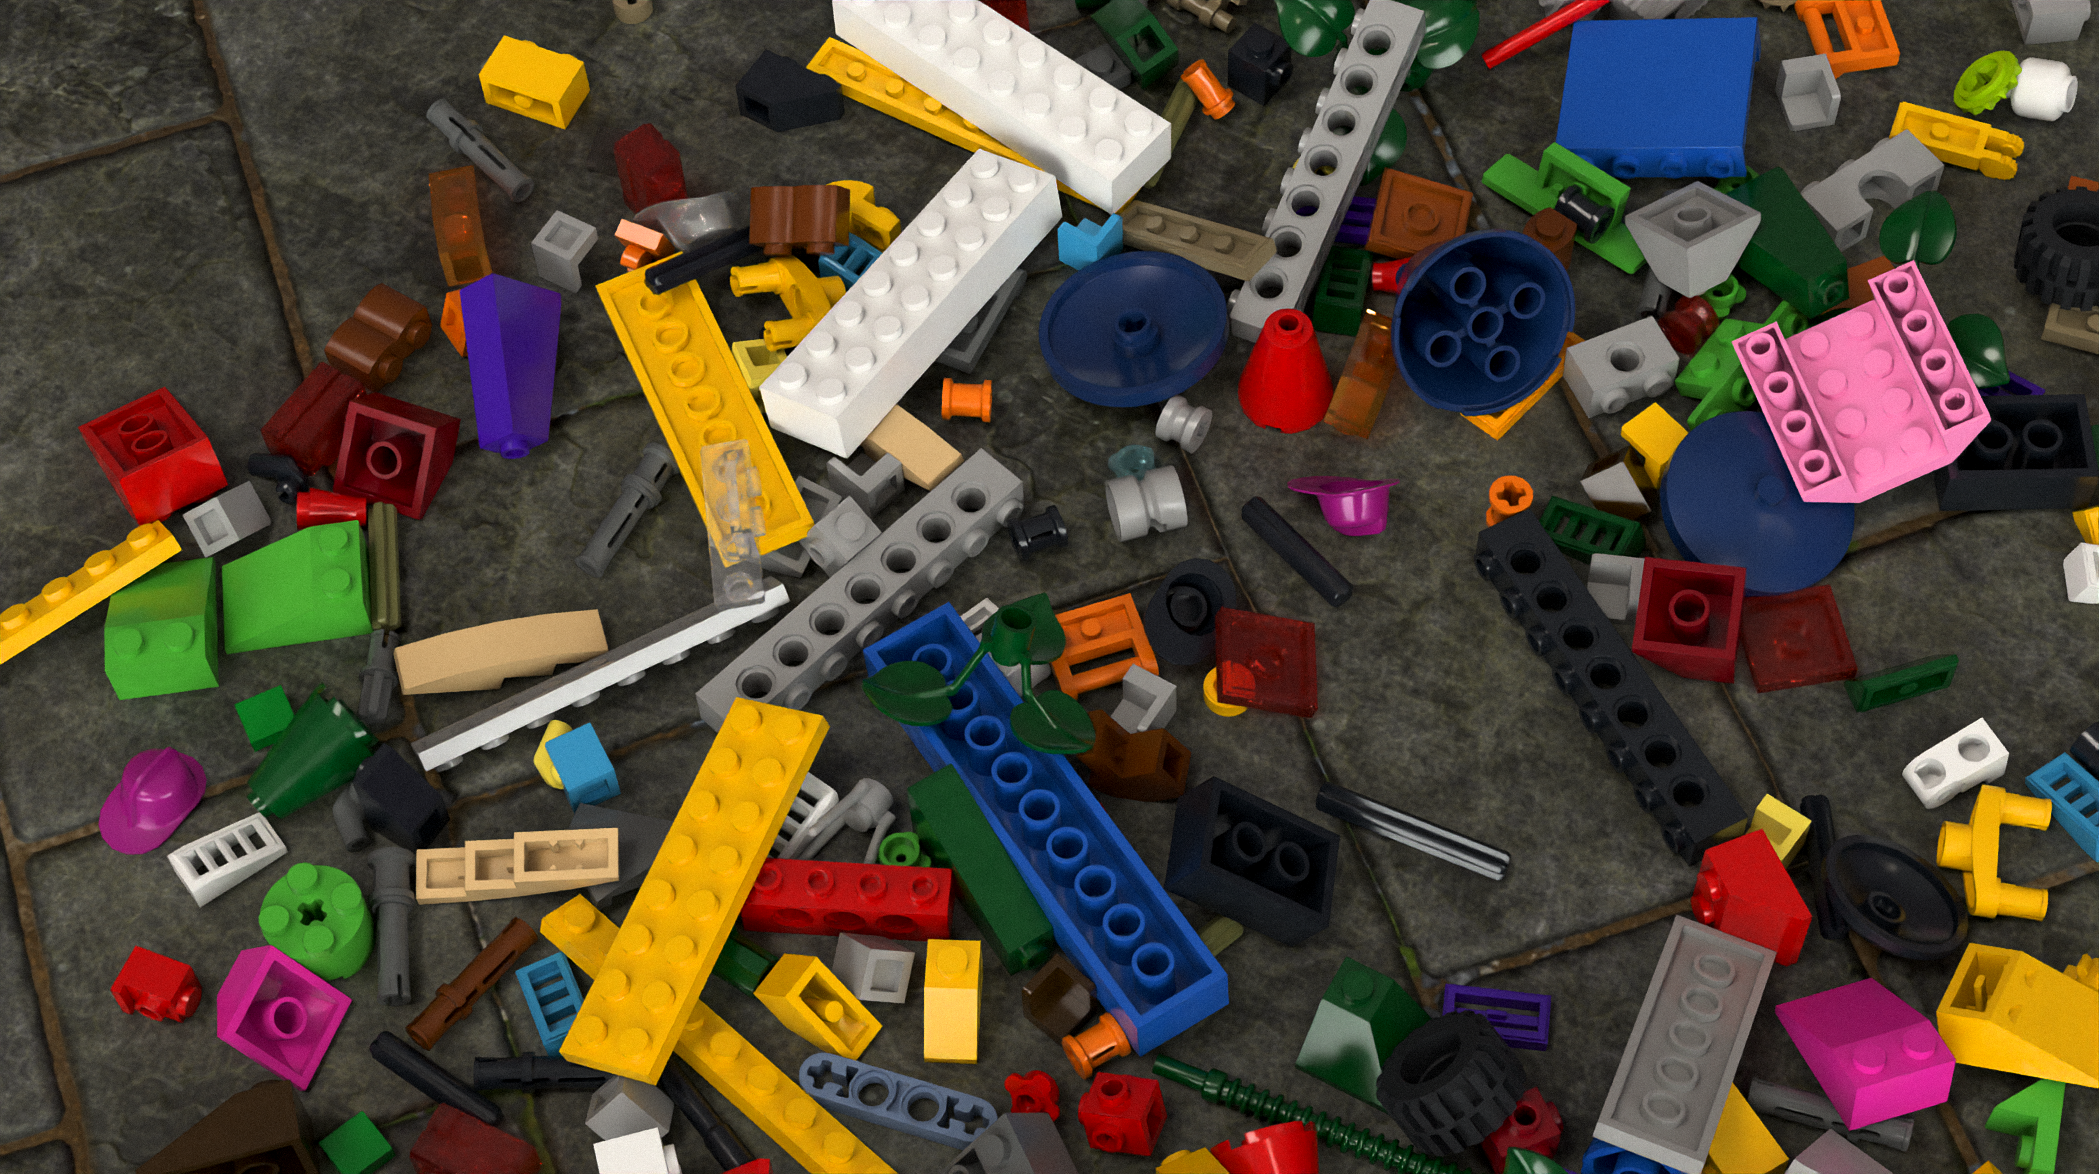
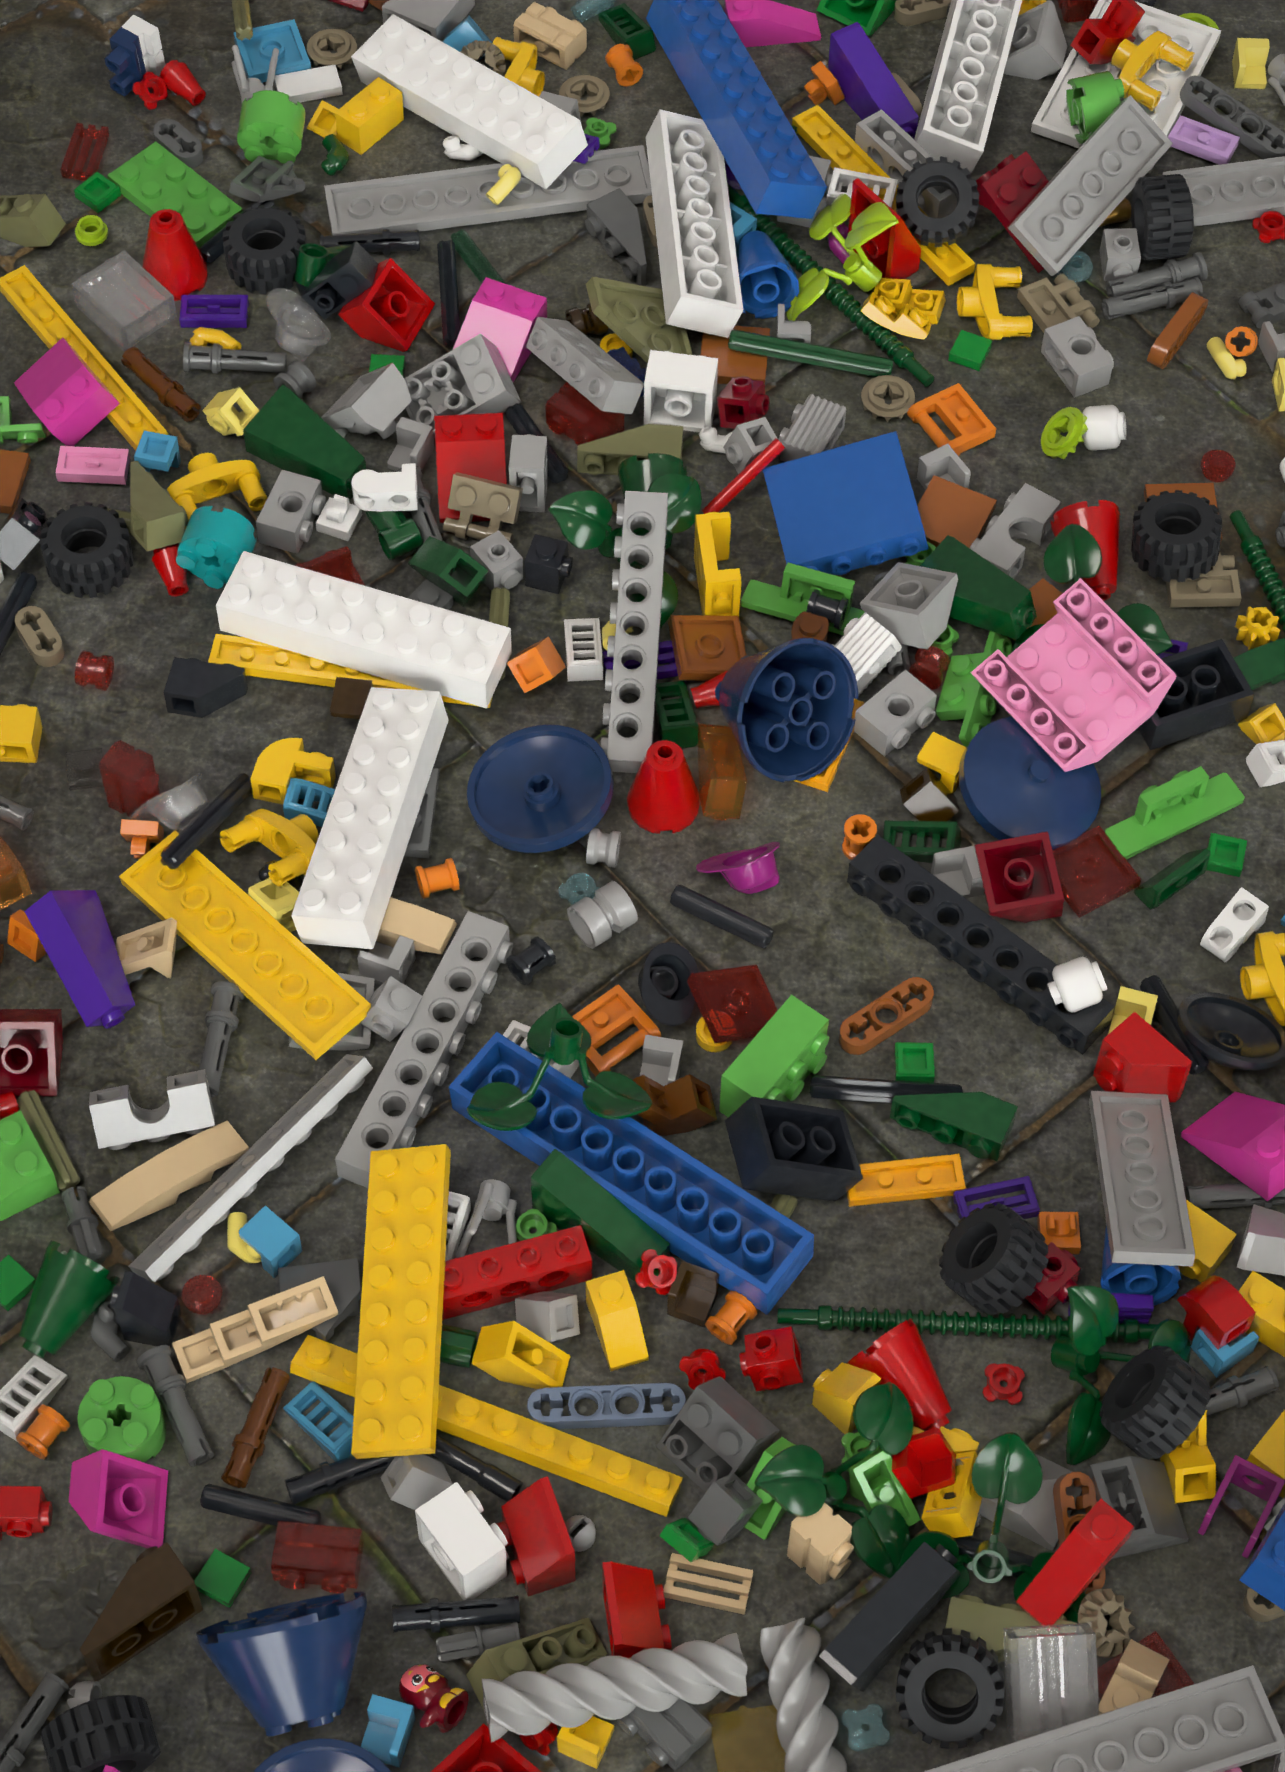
camera: 25 degrees left, 0 degrees up
(228, 904) = (43, 1431): none -> orange bush
(471, 571) = (121, 1121): none -> arch
(479, 805) = (202, 1294): none -> clear red plate
(561, 248) = (83, 856): light grey panel -> none
(596, 378) = (149, 947): none -> tan slope
(672, 40) = (94, 670): none -> clear red wheel
(733, 524) = (313, 1022): clear bracket -> none
(799, 218) = (261, 779): reddish brown brick -> none
(950, 153) = (349, 697): none -> dark brown panel
(1016, 941) = (667, 1272): none -> red plate
(1089, 241) = (477, 735): dark azure panel -> none
(1196, 180) = (536, 664): none -> orange panel
(1196, 239) = (565, 709): dark tan tile -> none
(1200, 37) = (500, 560): none -> light grey brick
(1209, 91) = (524, 599): orange pin -> none
(1256, 203) = (583, 669): none -> white slope
(1284, 743) = (777, 1057): none -> bright green brick
(1357, 1030) = (911, 1246): dark green slope -> none
(1393, 949) = (907, 1180): none -> light orange tile
(1464, 806) = (914, 1062): none -> green tile
(1468, 95) = (717, 588): none -> yellow panel
(1483, 714) = (881, 1031): none -> dark orange beam
(1497, 897) = (964, 1119): none -> dark green slope
(1563, 1079) = (1061, 1229): none -> orange tile
(1608, 280) = (867, 648): none -> white brick
(1705, 772) = (1077, 984): none -> white head
(1799, 141) = (953, 512): none -> dark orange tile
(1937, 593) = (1173, 809): none -> bright green bracket
(1961, 140) = (1060, 479): yellow hinge -> none
(1981, 217) = (1104, 525): none -> red cone
(1985, 672) = (1226, 854): none -> green tile

